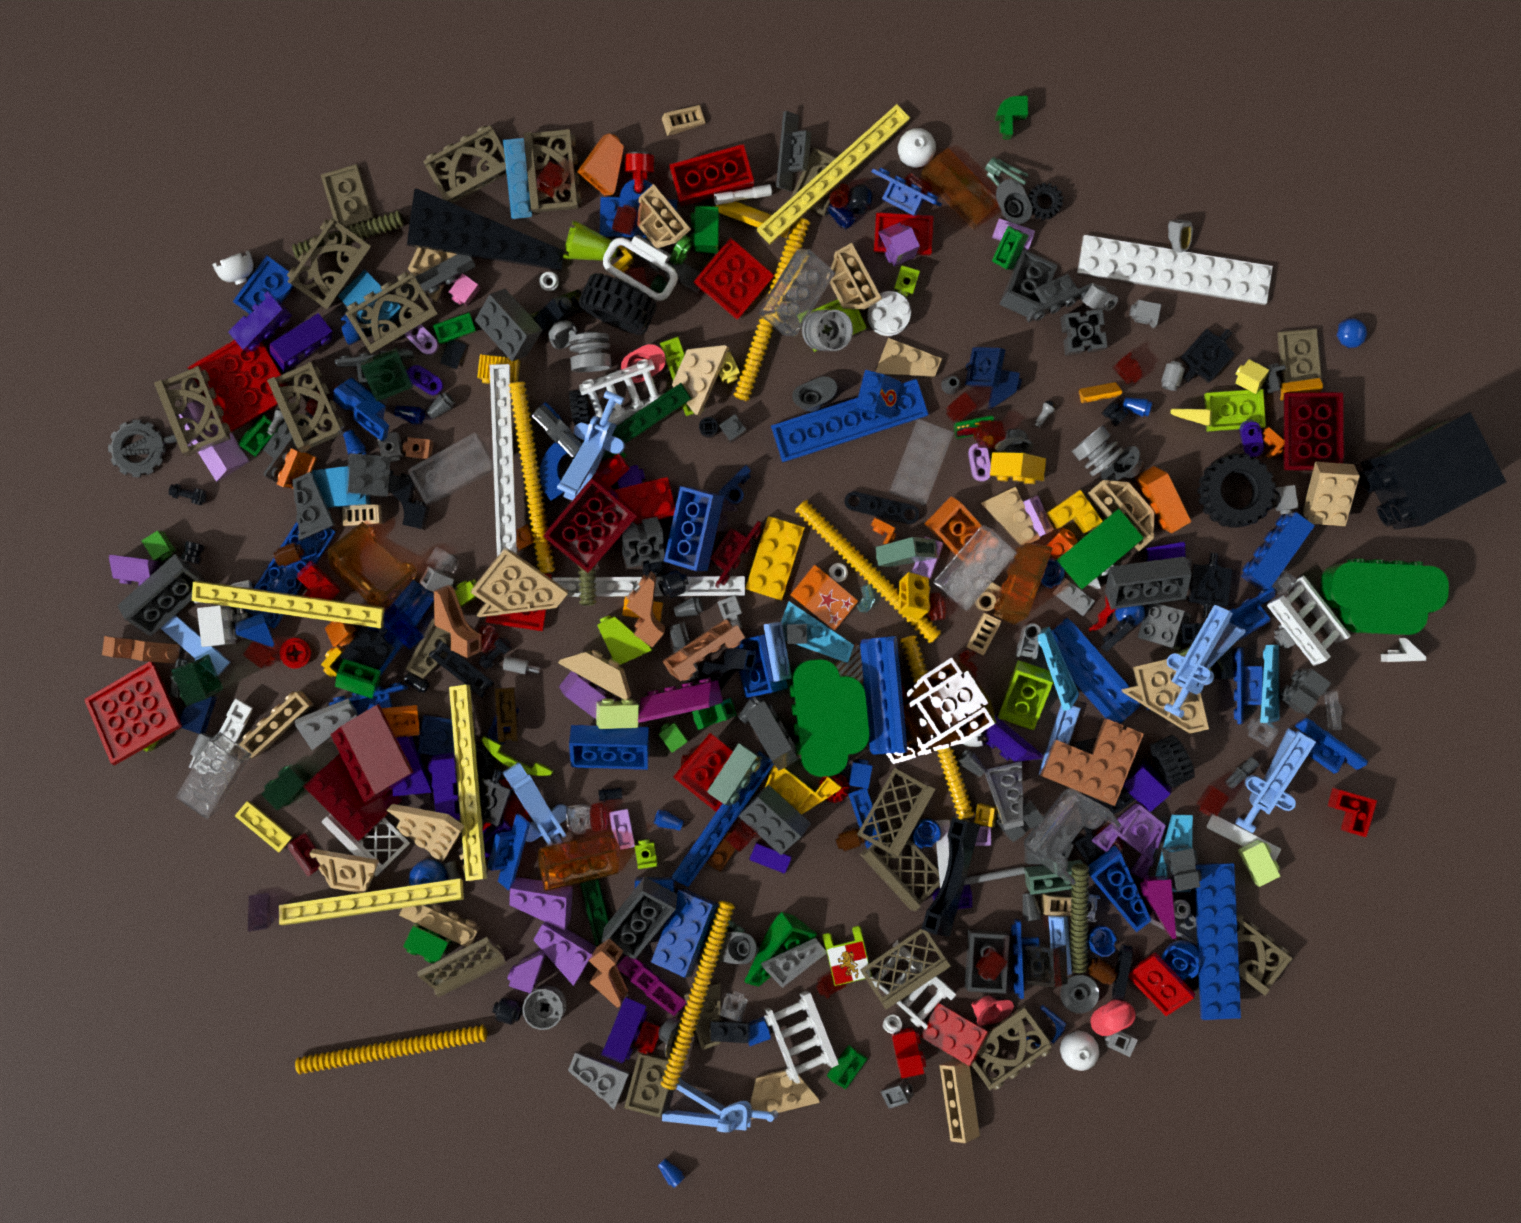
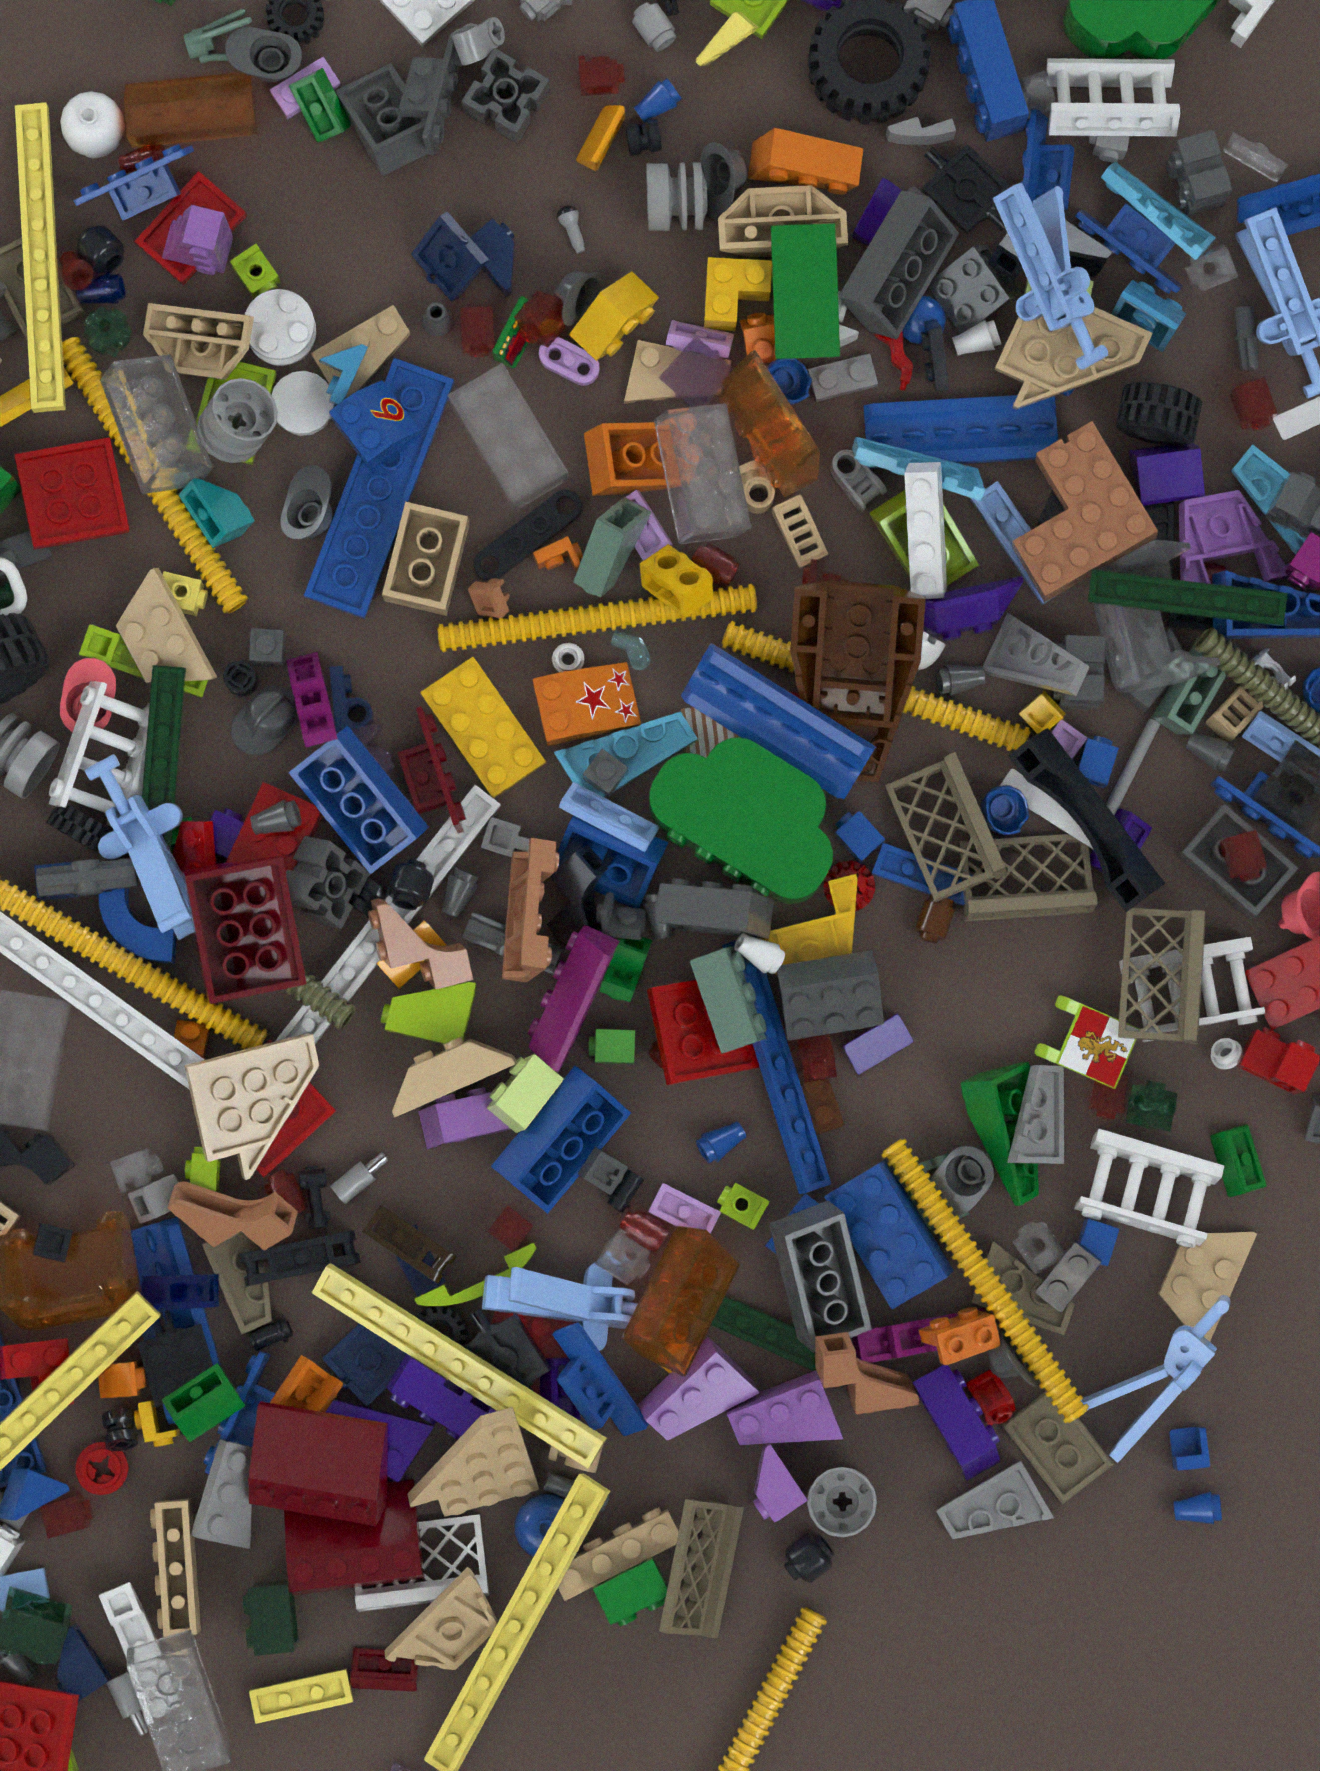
camera: 55 degrees left, 5 degrees down
(318, 647) = (120, 1430): none -> black wheel
(378, 549) = (52, 1242): none -> black plate
(550, 755) = (510, 1228): none -> clear red brick
(610, 777) = (603, 1170): none -> dark grey bracket
(654, 498) = (277, 818): none -> dark grey cone
(663, 1004) = (962, 1335): none -> orange bracket
(695, 1147) = (1189, 1448): none -> blue panel
(698, 454) = (264, 720): none -> dark grey piece
(723, 469) = (311, 699): none -> magenta slope
(733, 695) = (620, 921): none -> dark grey bracket
(769, 775) = (761, 953): none -> white cone
(778, 353) = (216, 511): none -> teal slope
(820, 240) = (112, 340): none -> clear green brick
(832, 469) = (426, 558): none -> tan brick
(837, 513) = (489, 598): none -> nougat tile
(840, 1009) = (1151, 1106): none -> clear green brick
(862, 352) = (302, 403): none -> white tile
(896, 360) = (348, 364): none -> dark azure slope
(983, 858) = (1097, 760): none -> blue brick
(1020, 527) = (696, 373): none -> clear purple piece
(1029, 695) = (926, 529): none -> white brick
(1093, 844) = (1187, 597): none -> dark green tile
(1141, 646) = (977, 338): none -> white cone
(1217, 538) = (911, 133): none -> light grey slope
(1218, 719) = (1150, 312): none -> dark azure slope

